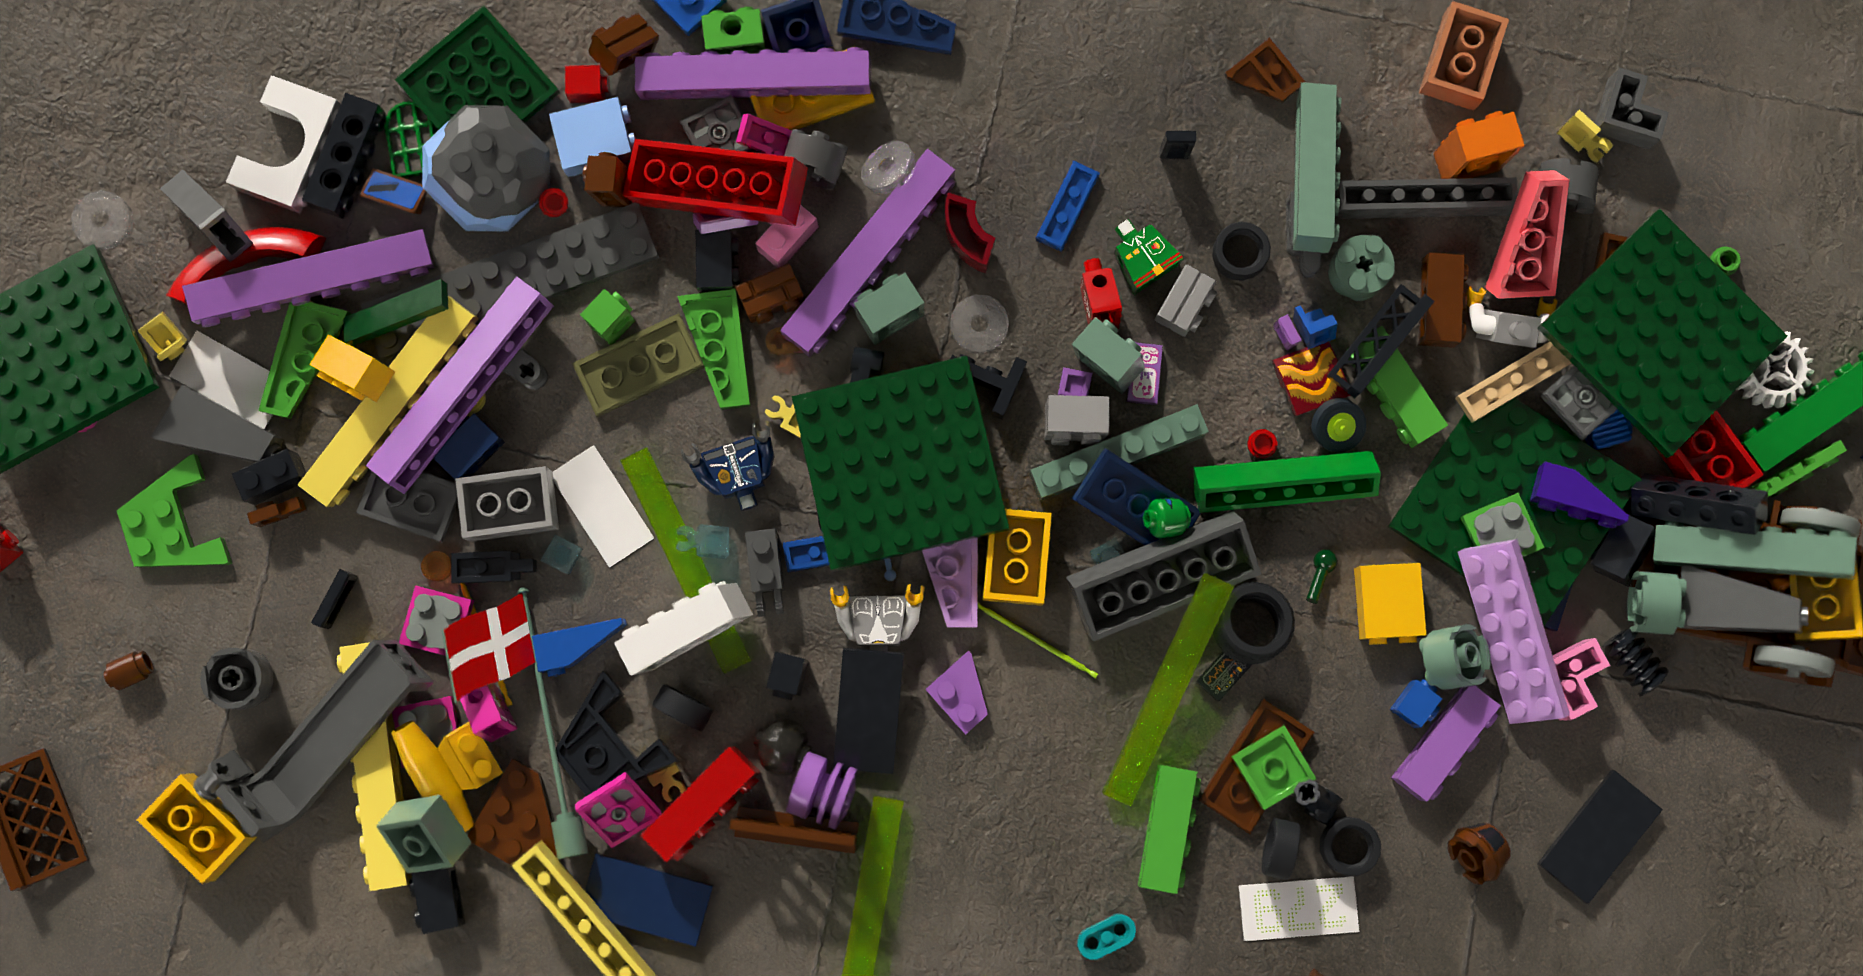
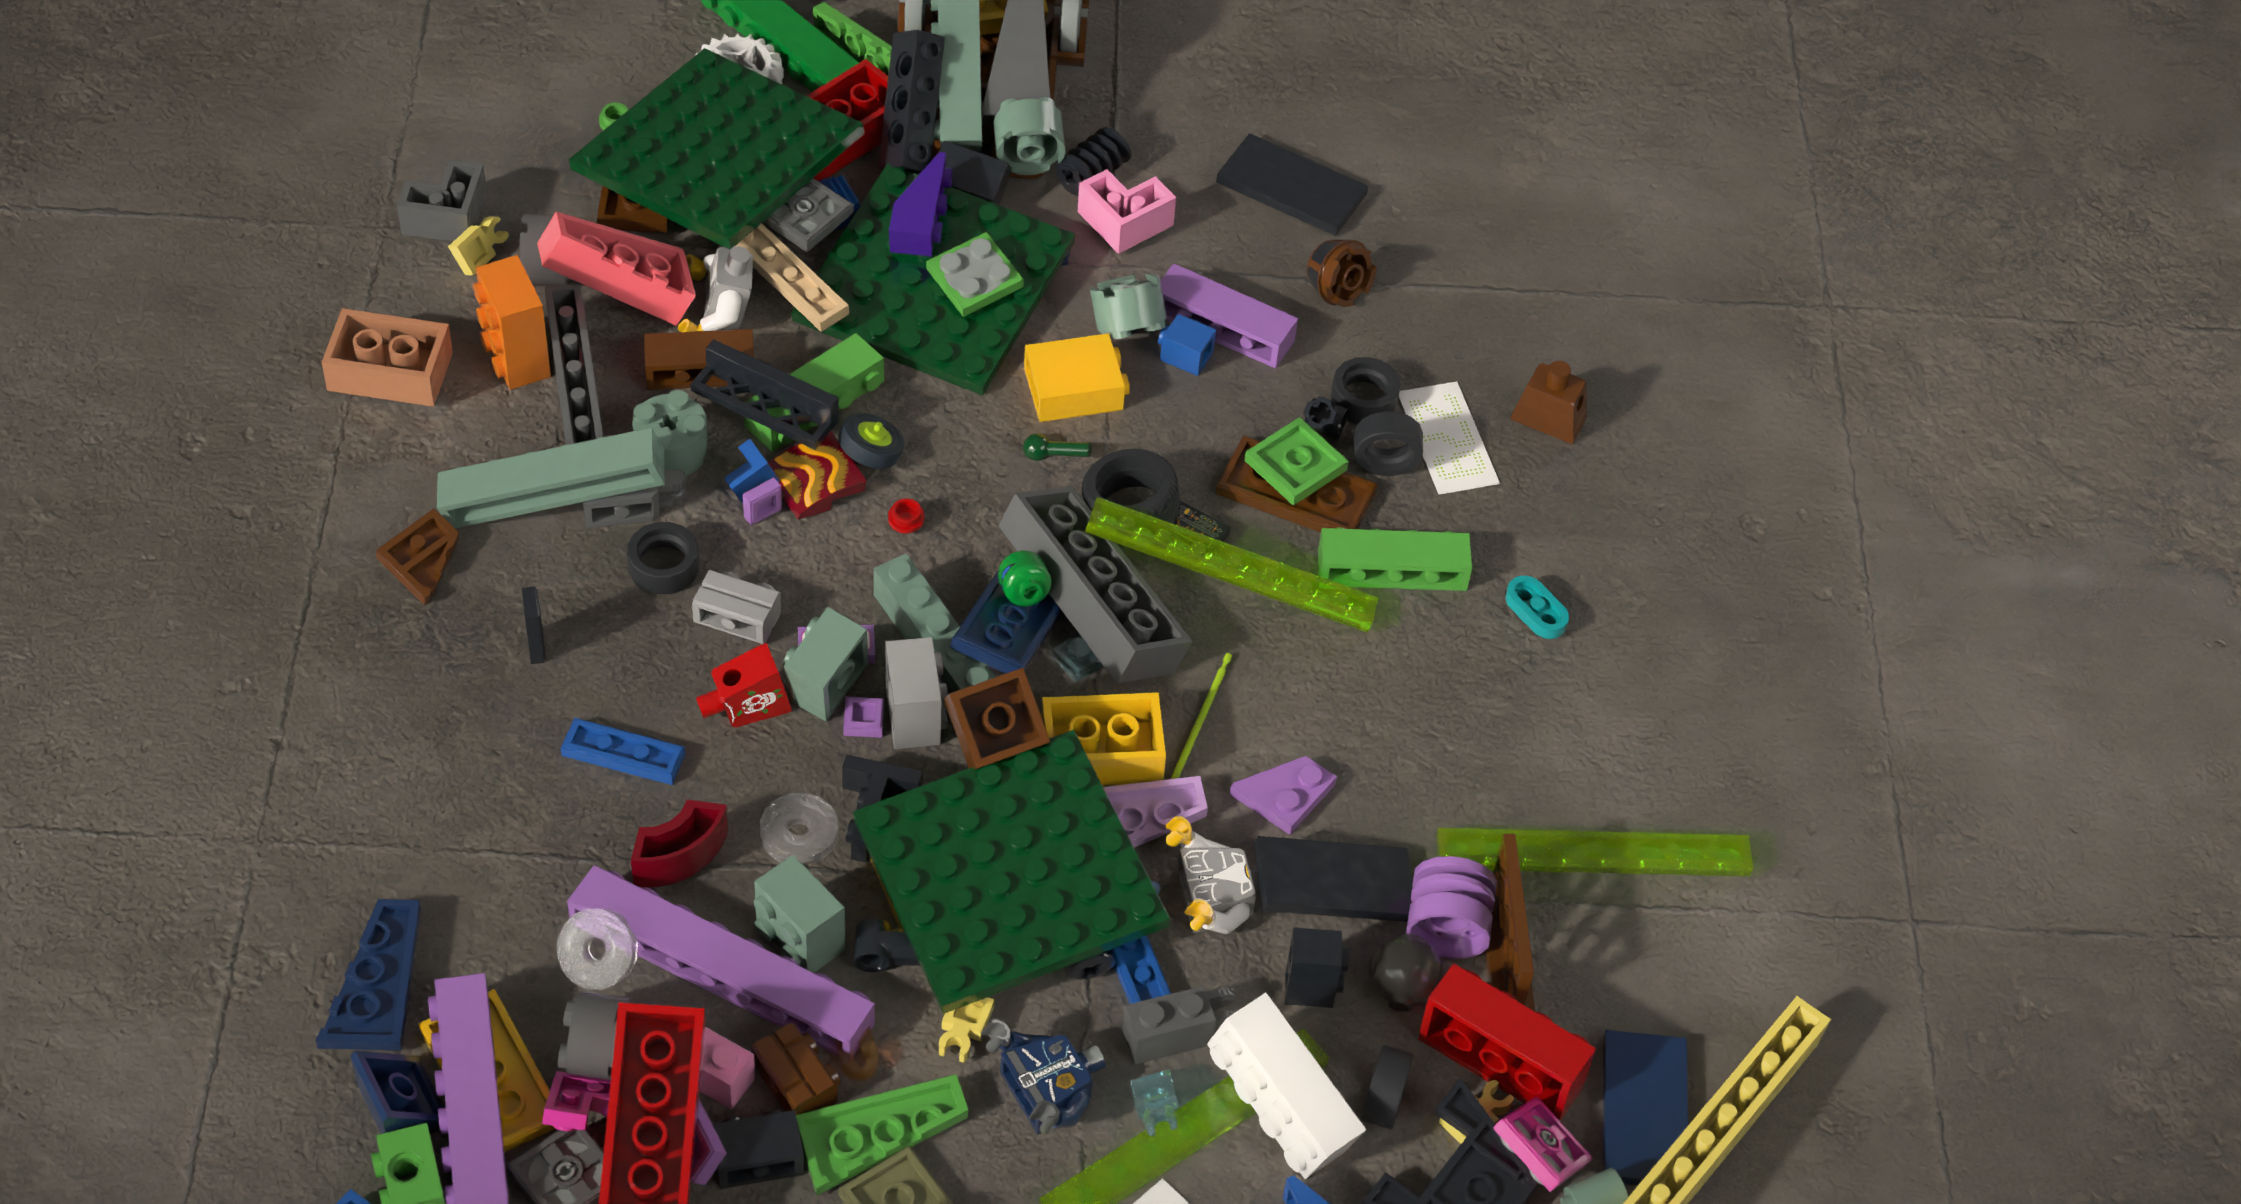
camera: 105 degrees left, 30 degrees down
(1023, 469) = (996, 719): none -> reddish brown brick
(1144, 255) = (682, 654): green torso -> none
(1286, 481) = (952, 482): green brick -> none
(1513, 632) = (1087, 251): lavender plate -> none

